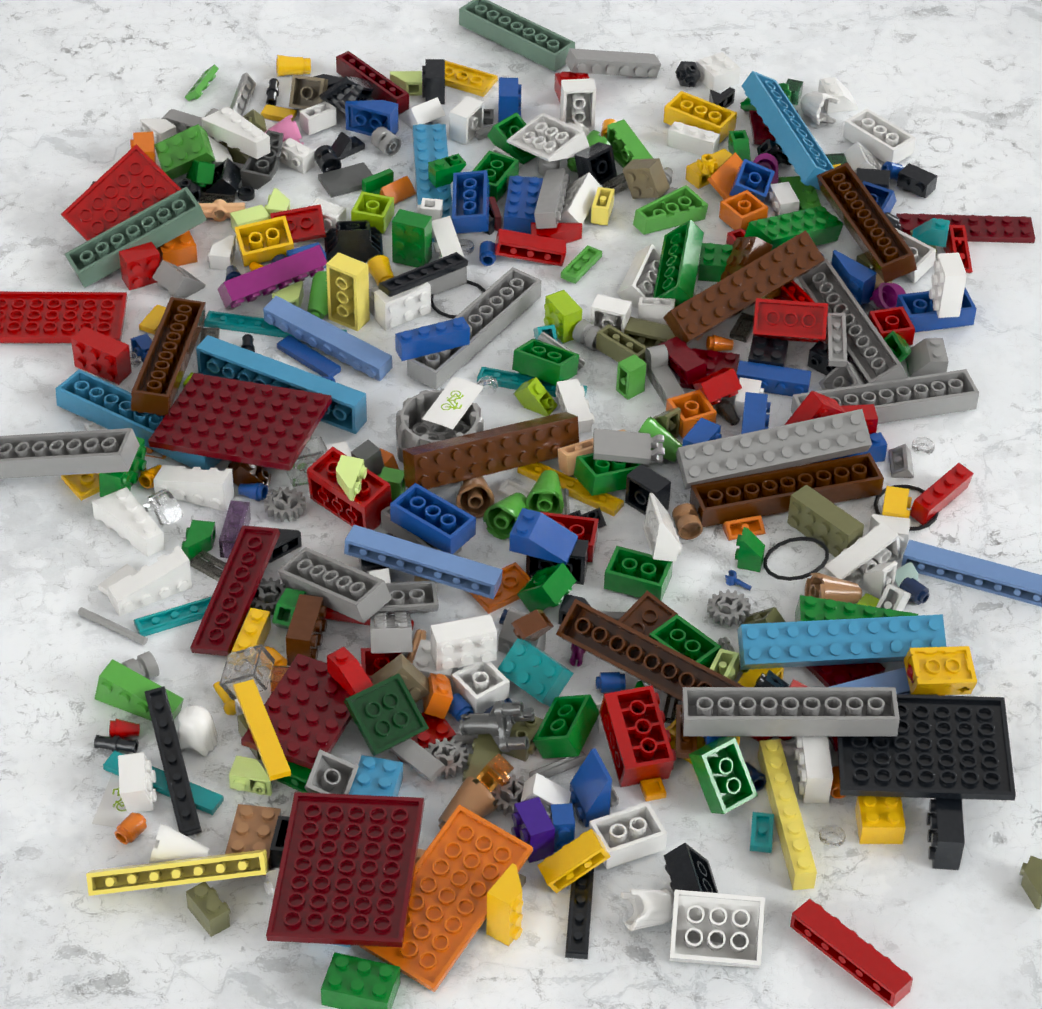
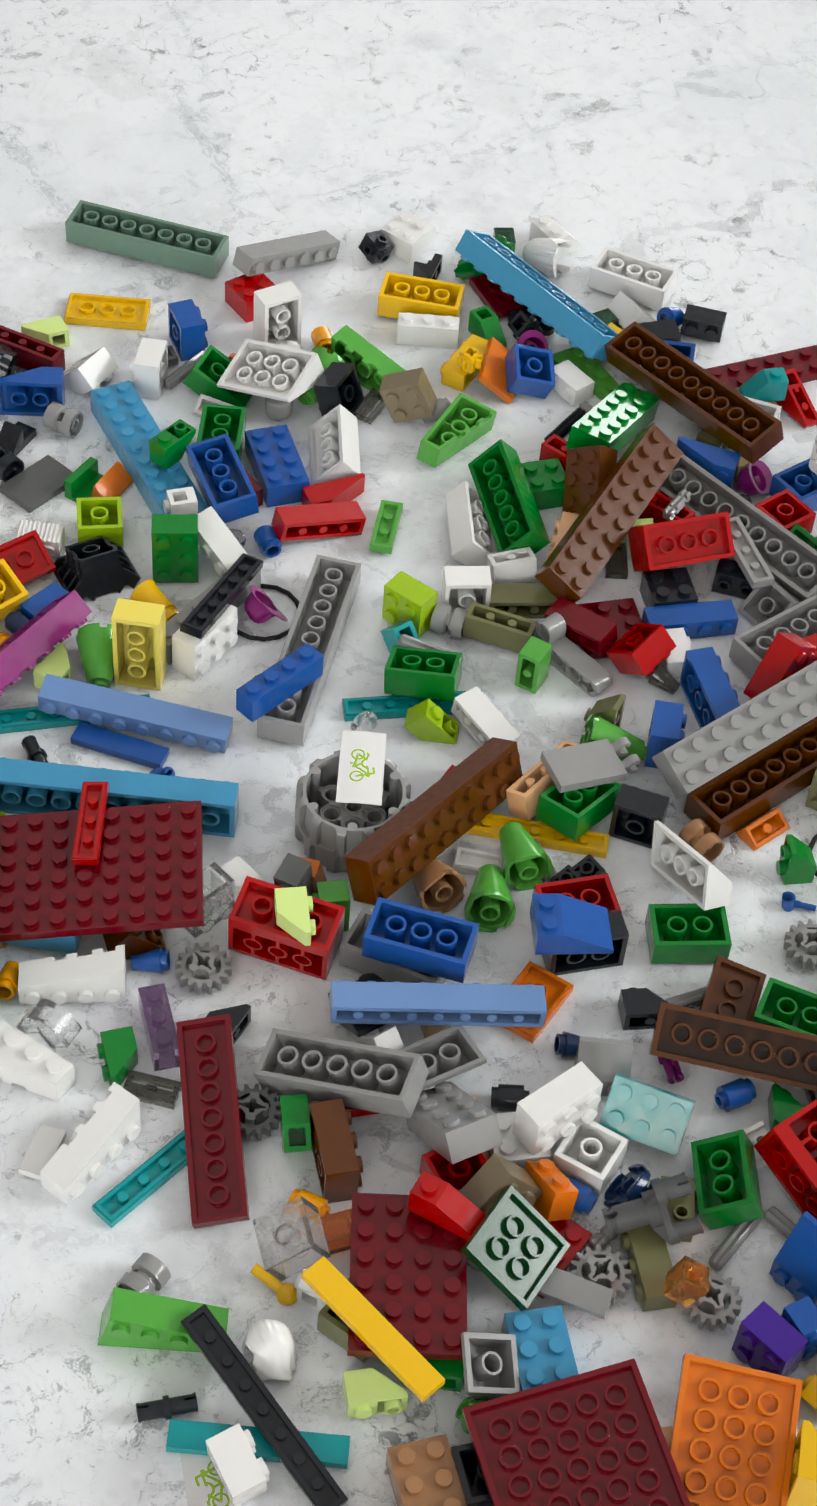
camera: 25 degrees left, 5 degrees up
(112, 626) = (67, 1224): light grey bar -> none
(123, 728) = (165, 1381): red cone -> none
(248, 389) = (90, 823): none -> red tile
(254, 630) = (264, 1175): yellow brick -> none
(433, 80) = (83, 324): black brick -> none
(456, 292) = (260, 606): none -> magenta piece
(472, 797) = (668, 1337): medium nougat cone -> none
(532, 625) = (626, 1056): reddish brown slope -> none
(546, 790) = (751, 1286): white brick -> none
(547, 587) = (596, 988): green brick -> none
(551, 198) = (313, 449): light grey brick -> none
(602, 206) = (373, 443): light yellow brick -> none
(693, 407) = (638, 687): orange brick -> none
(719, 343) = (602, 590): orange cone -> none
(742, 209) = (538, 411): orange brick -> none
(806, 295) = (676, 504): none -> light grey axle

